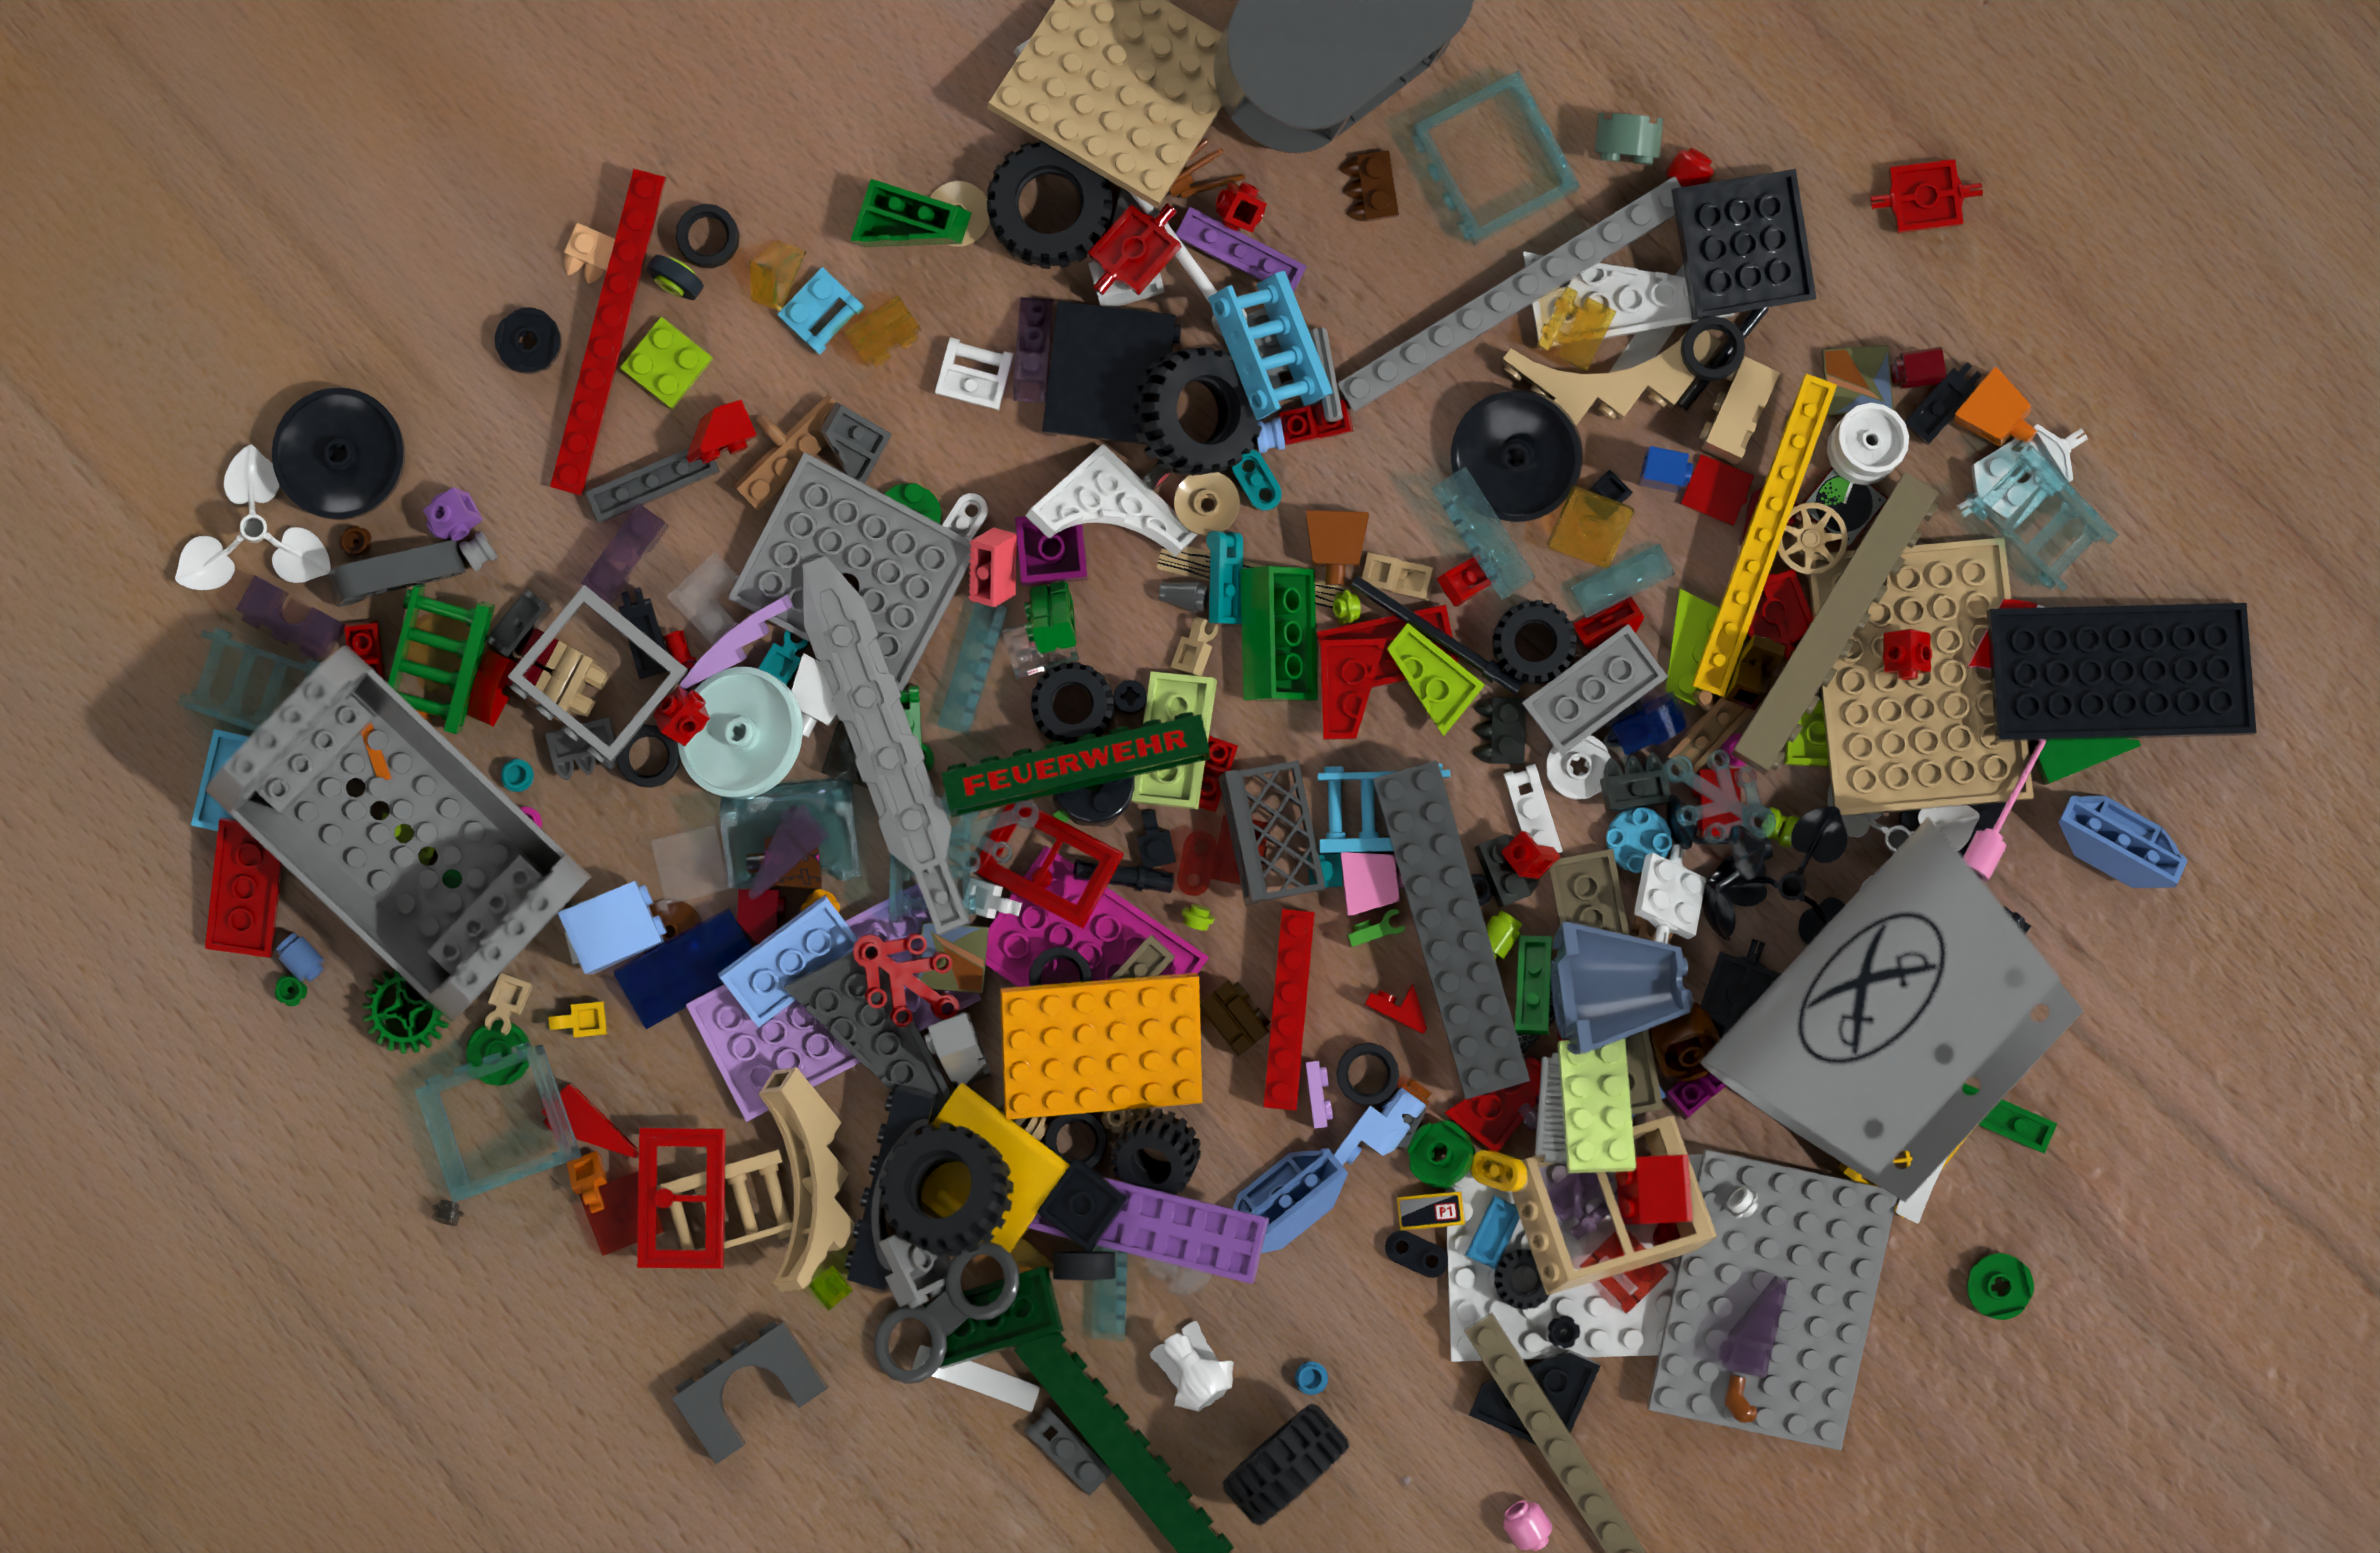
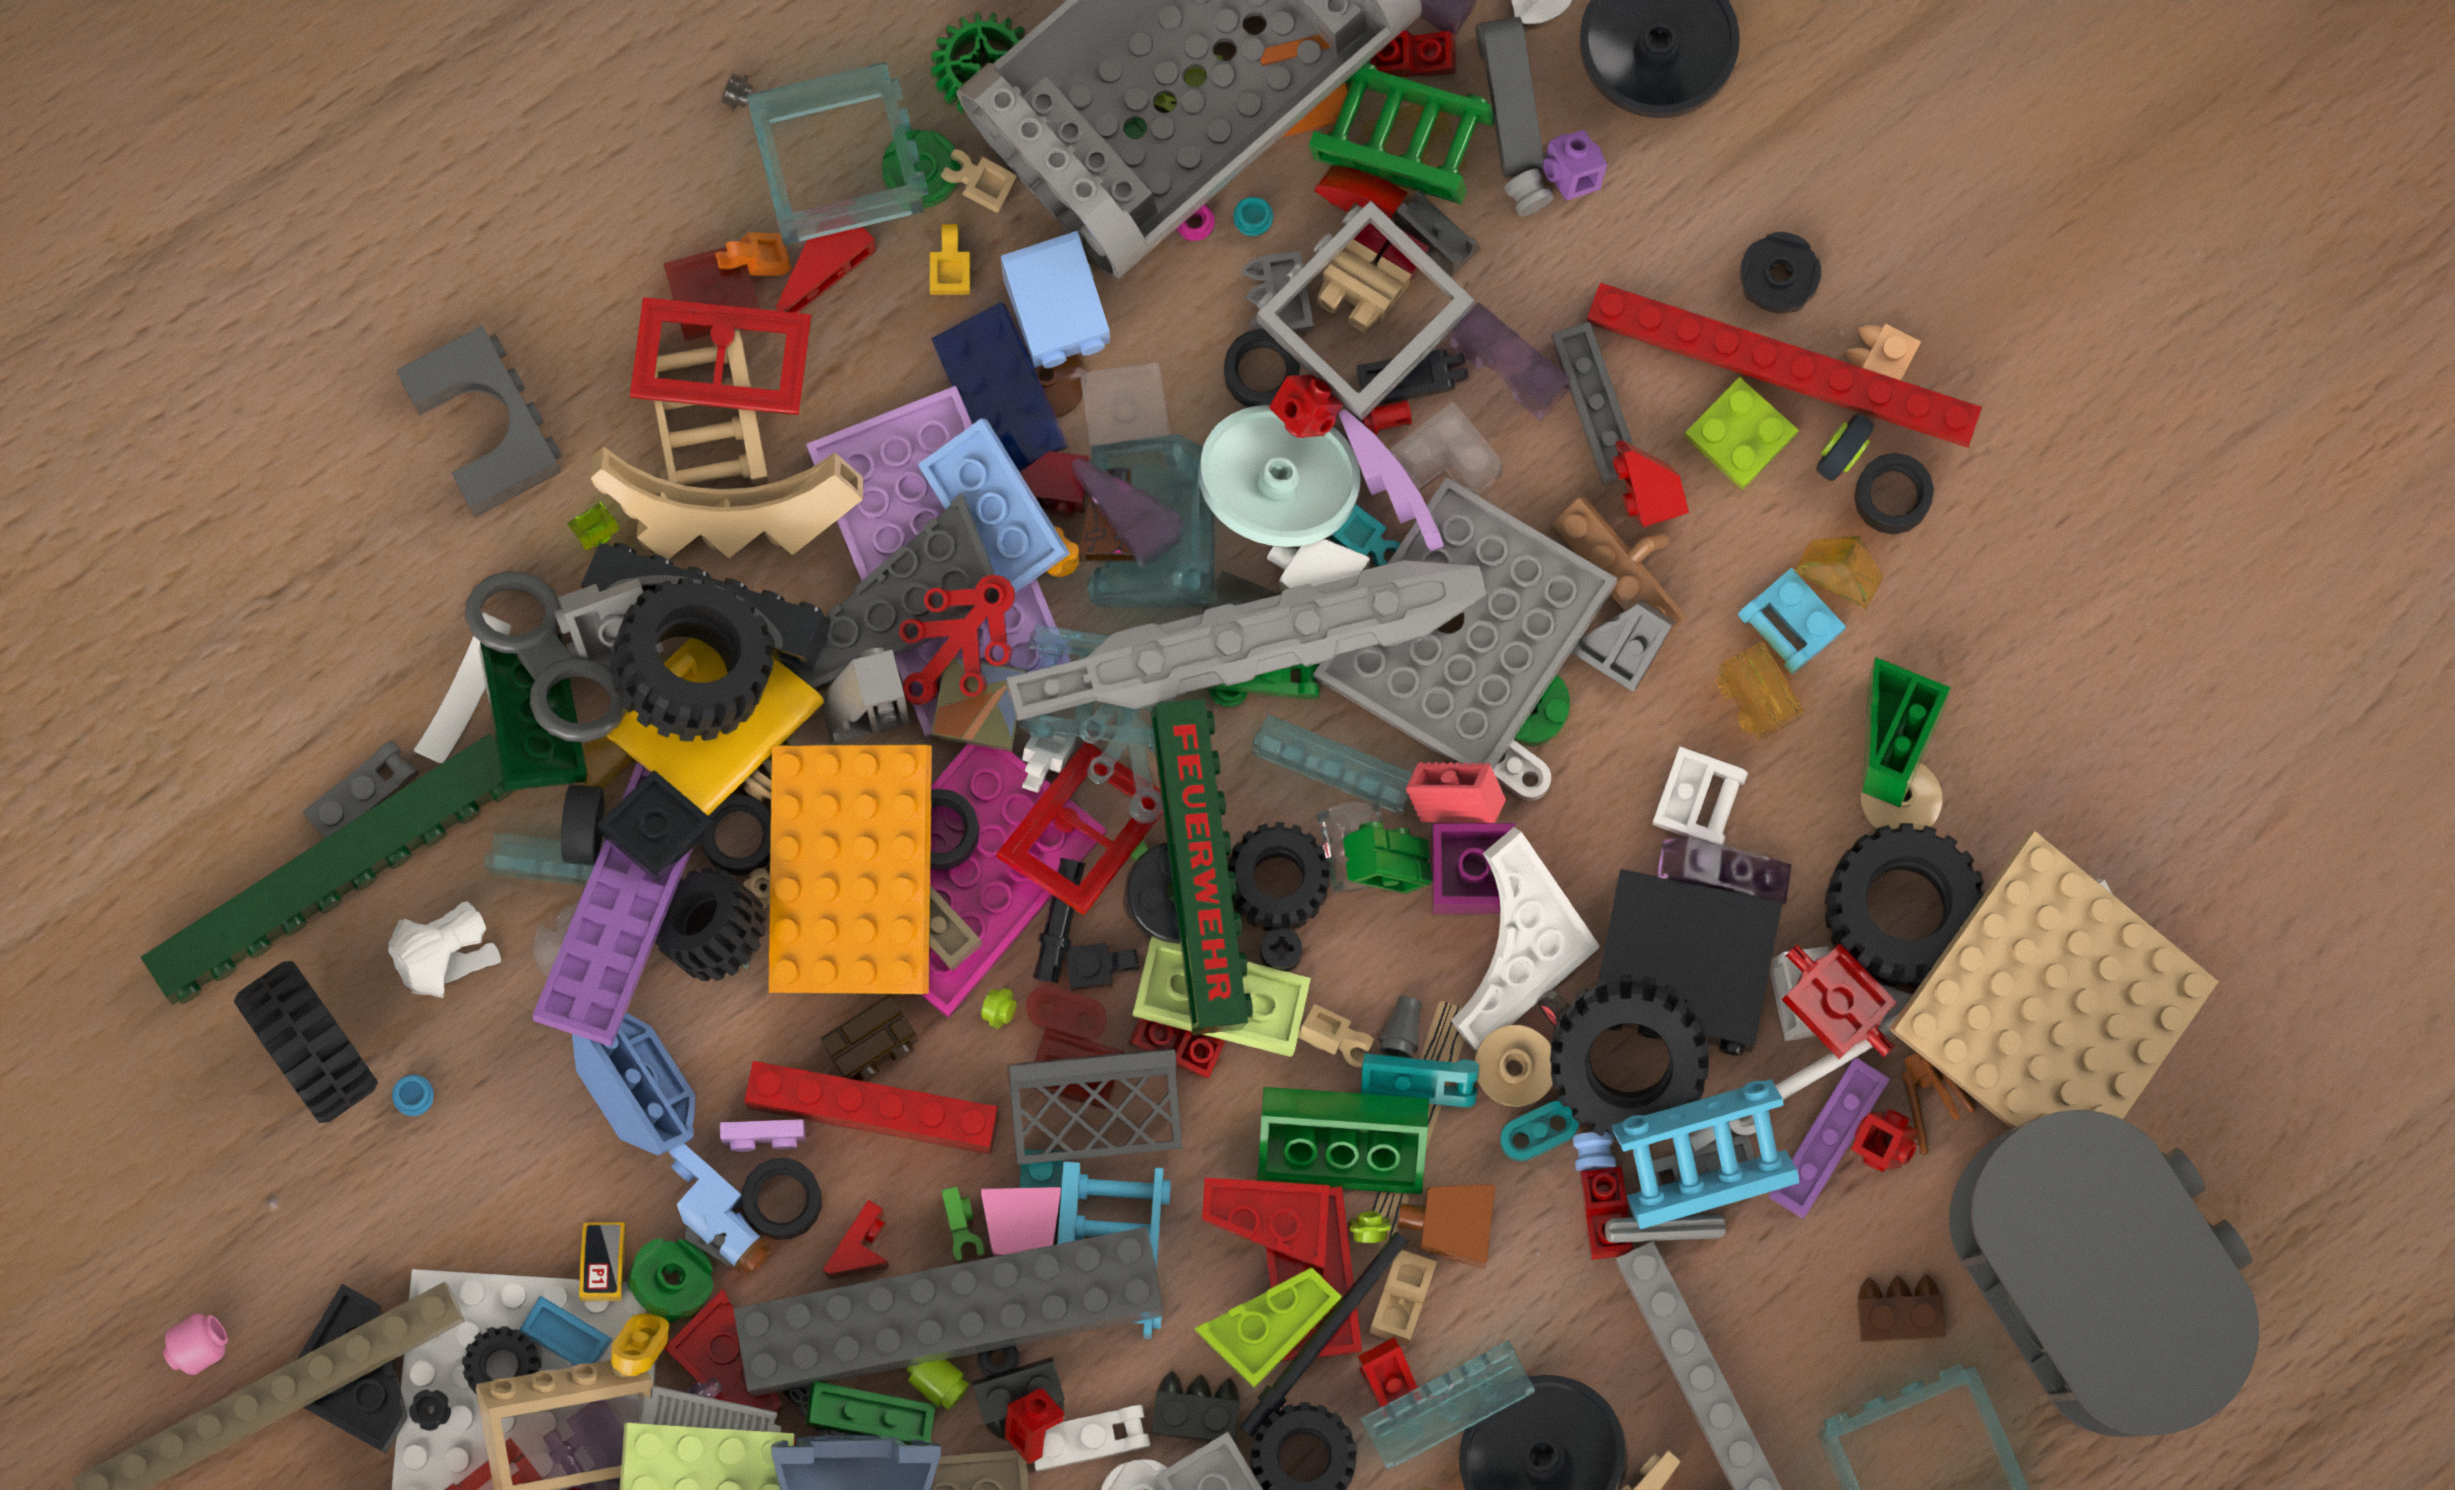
camera: 90 degrees right, 10 degrees down
(350, 535) = (1556, 45): reddish brown plate -> none
(1416, 1254) = (554, 1240): black plate -> none

